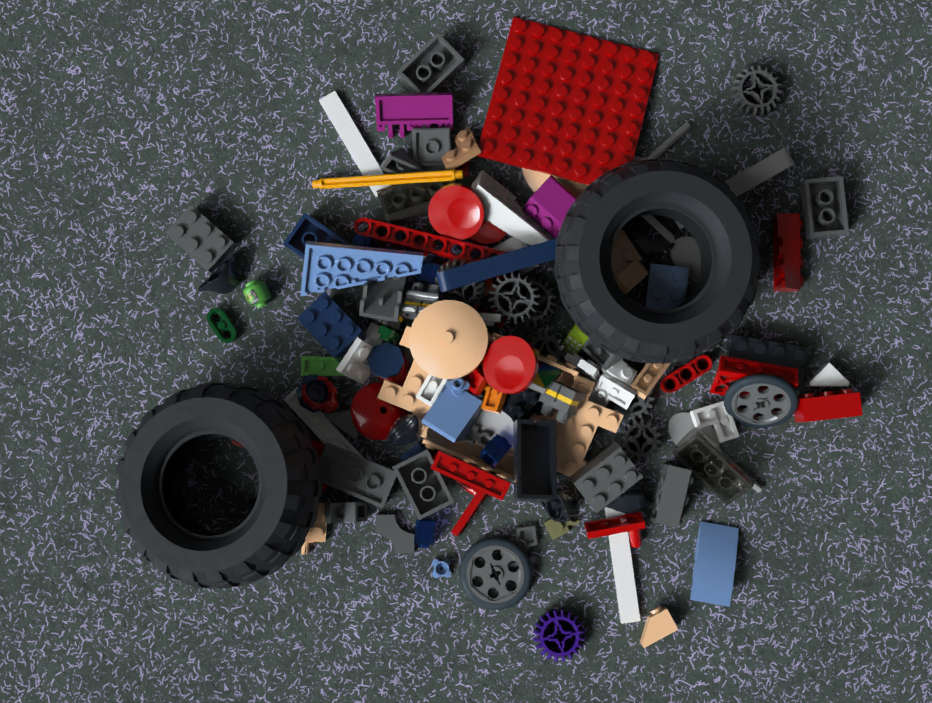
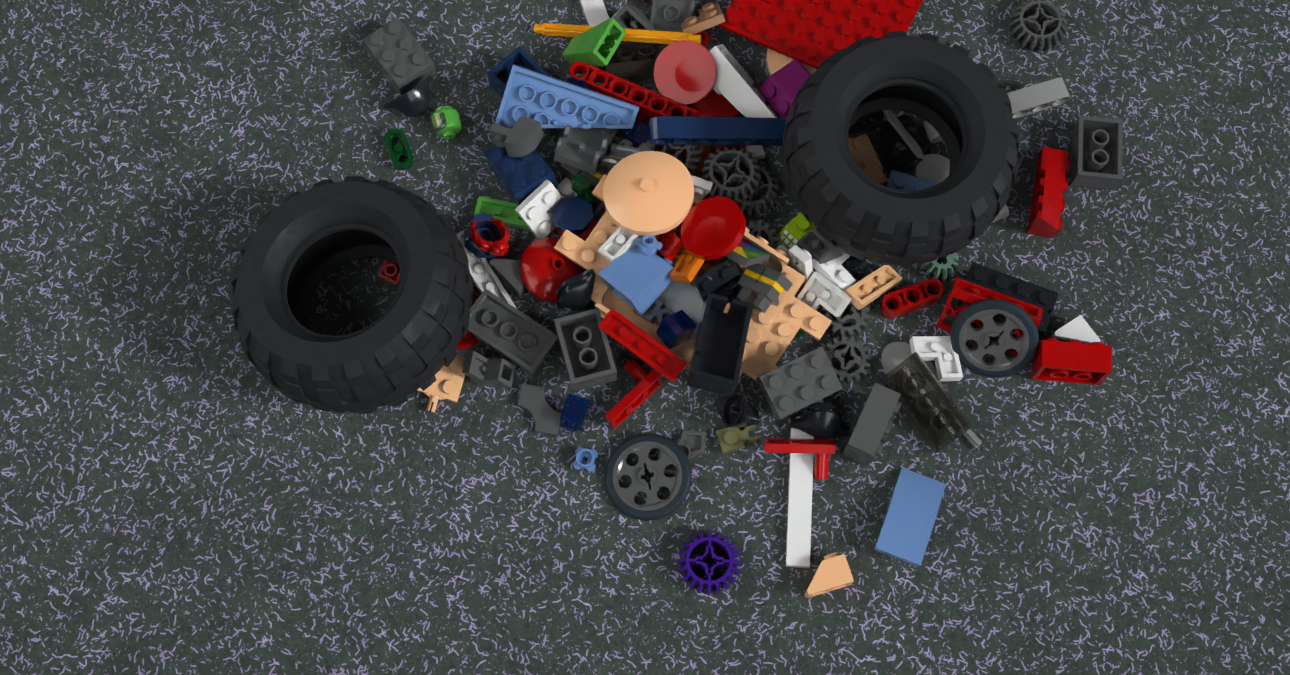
camera: 10 degrees right, 15 degrees down
(328, 305) = (519, 140): none -> dark grey brick
(371, 197) = (596, 44): none -> bright green slope

